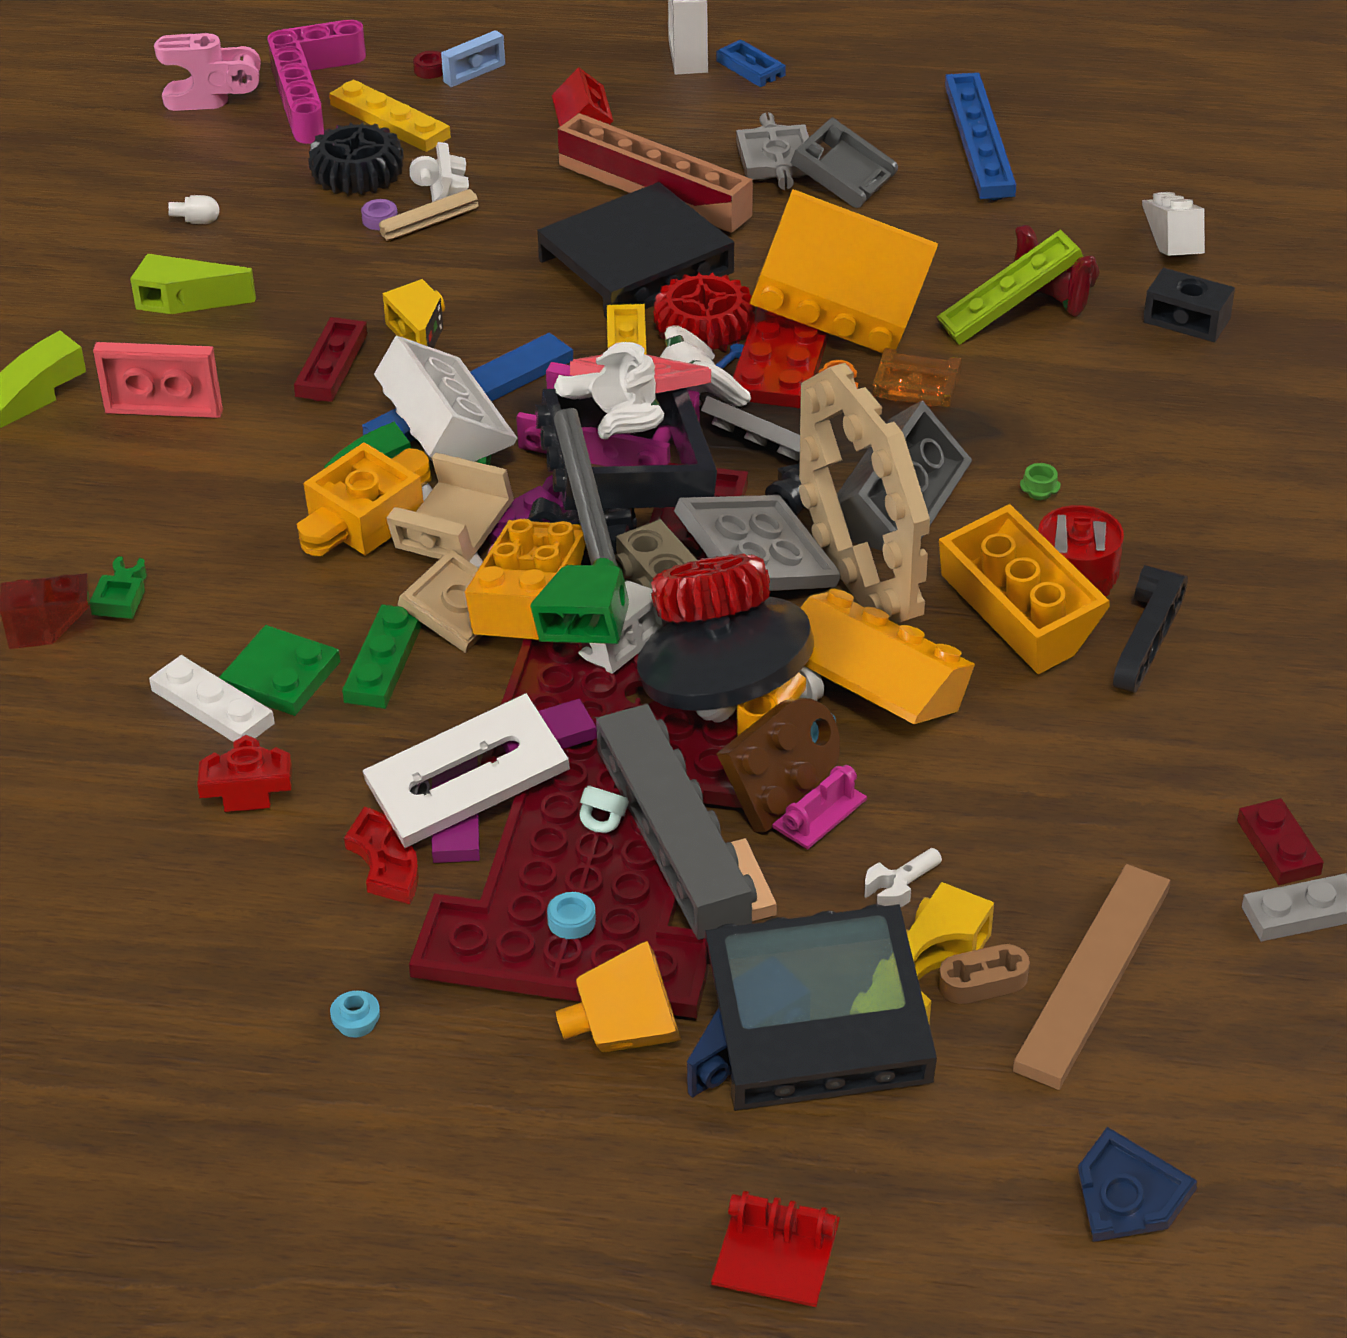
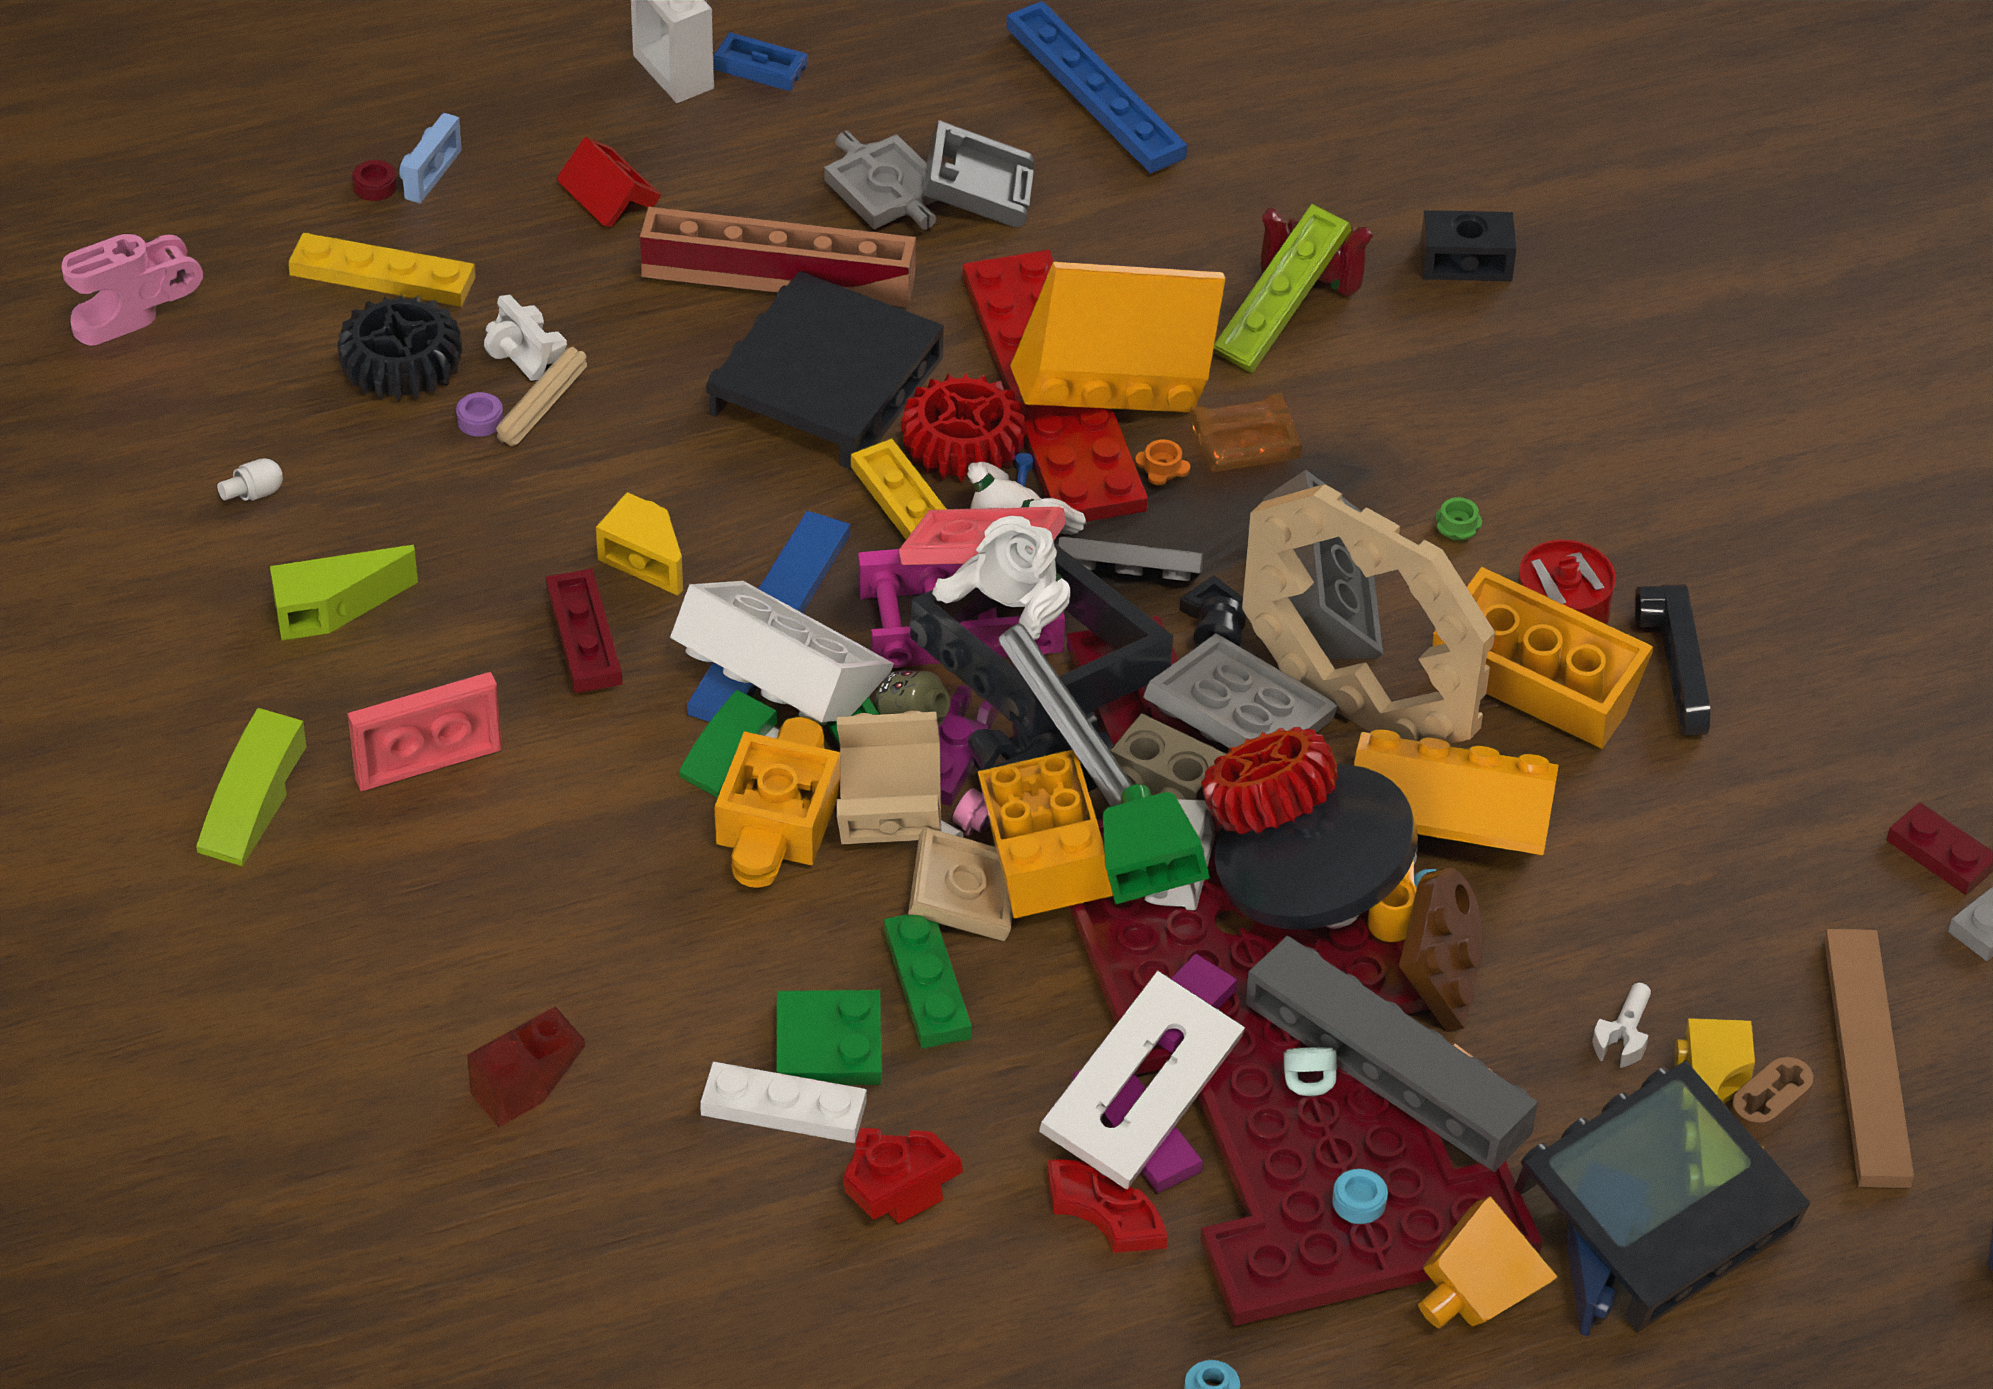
camera: 30 degrees left, 5 degrees up
(119, 594) = (583, 1006): green plate -> none
(305, 49) = (208, 221): dark pink beam -> none
(523, 464) = (913, 692): none -> olive head
(821, 808) = (1502, 980): dark pink hinge -> none
(1175, 224) = (1388, 144): white slope -> none

